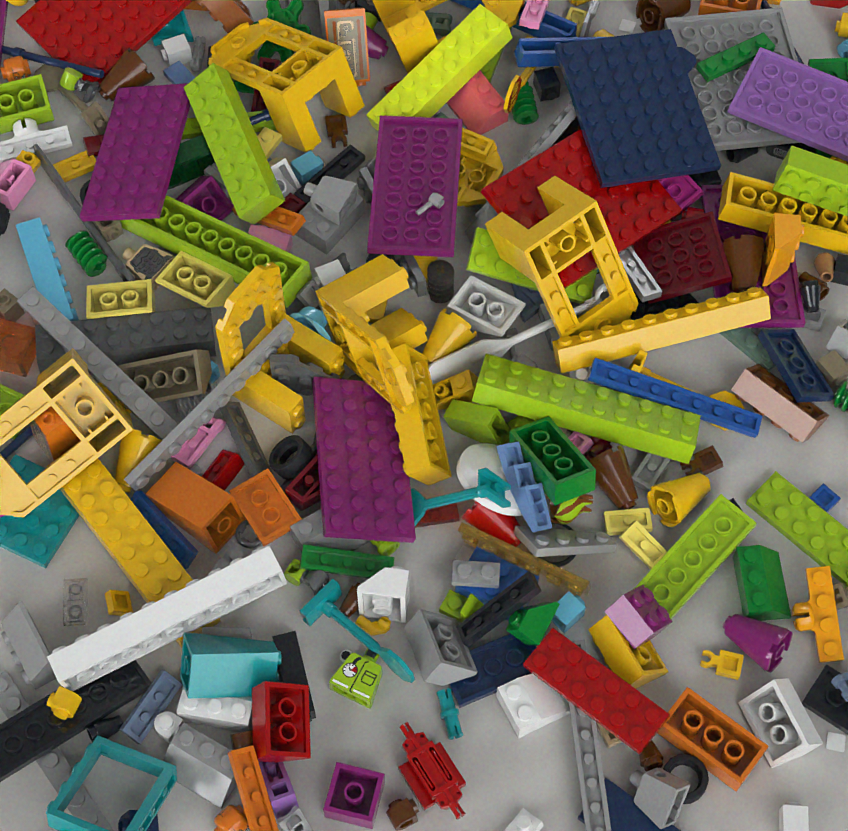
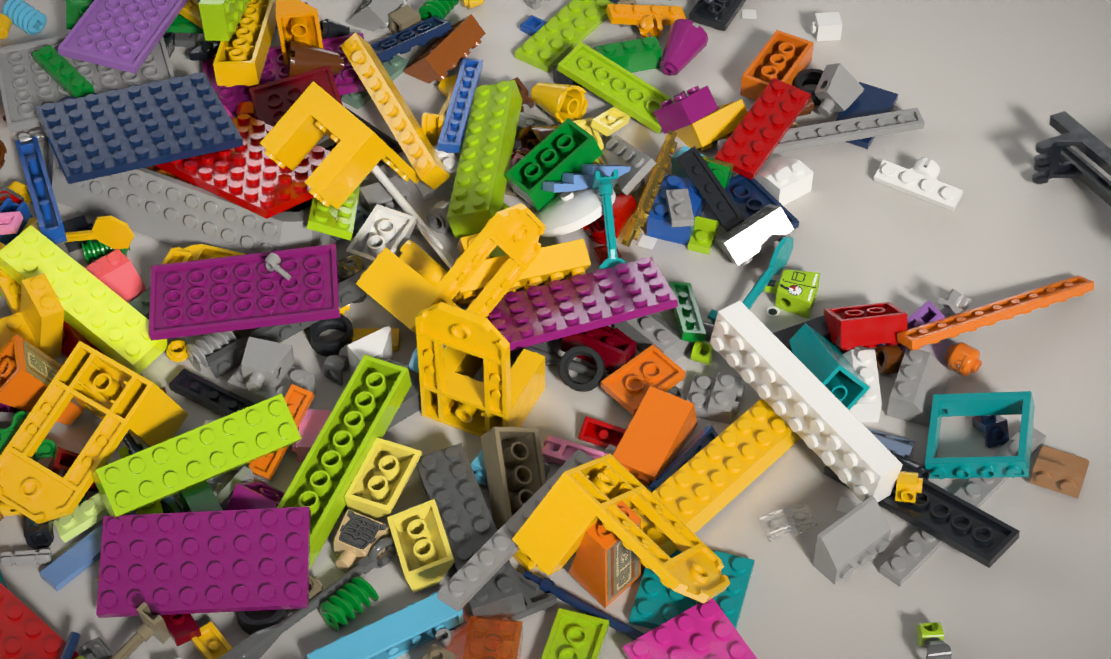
camera: 100 degrees left, 15 degrees down
(118, 602) = (778, 486): yellow plate -> none
(127, 72) = (70, 611): reddish brown cone -> none
(167, 725) = (891, 420): white plate -> none
(176, 50) = (25, 575): white brick -> none
(209, 405) = (557, 420): light grey plate -> none
(244, 438) = (573, 412): dark grey plate -> none
(306, 166) = (202, 411): medium azure brick -> none
(350, 603) = (714, 302): reddish brown cone -> none
(354, 795) = (908, 274): magenta brick -> none
(373, 628) = (739, 289): yellow arm -> none
(385, 595) = (717, 264): white slope -> none
(402, 813) = (909, 246): reddish brown plate -> none
(431, 773) = (870, 228): red piece -> none
(449, 713) = (809, 229): teal pin -> none
(727, 663) = (705, 70): yellow plate -> none
(780, 722) = (744, 37): white slope -> none

